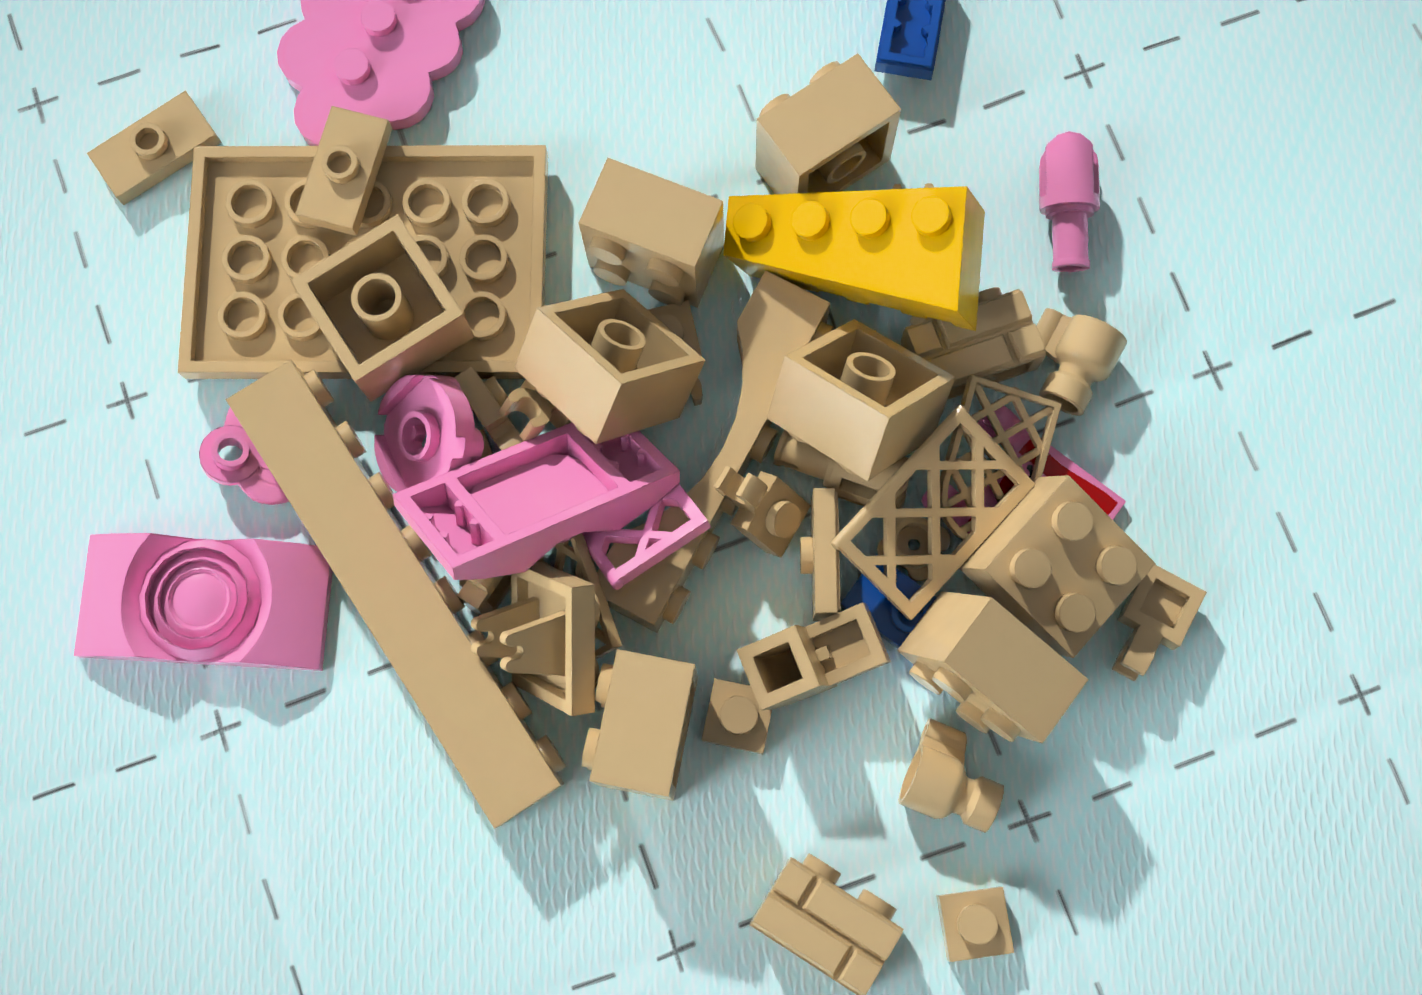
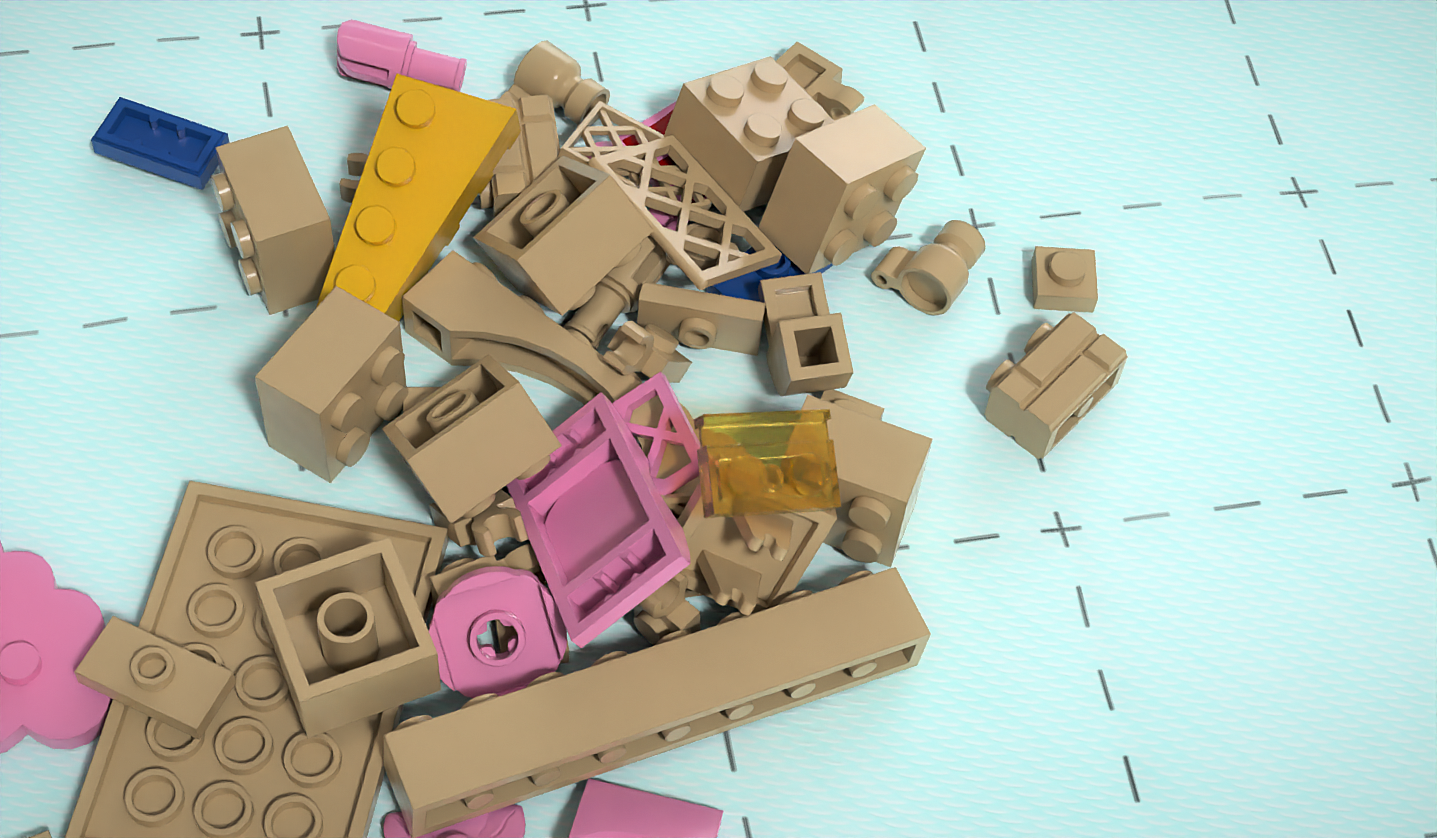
camera: 90 degrees left, 20 degrees down
(585, 634) = (766, 463): none -> clear yellow plate

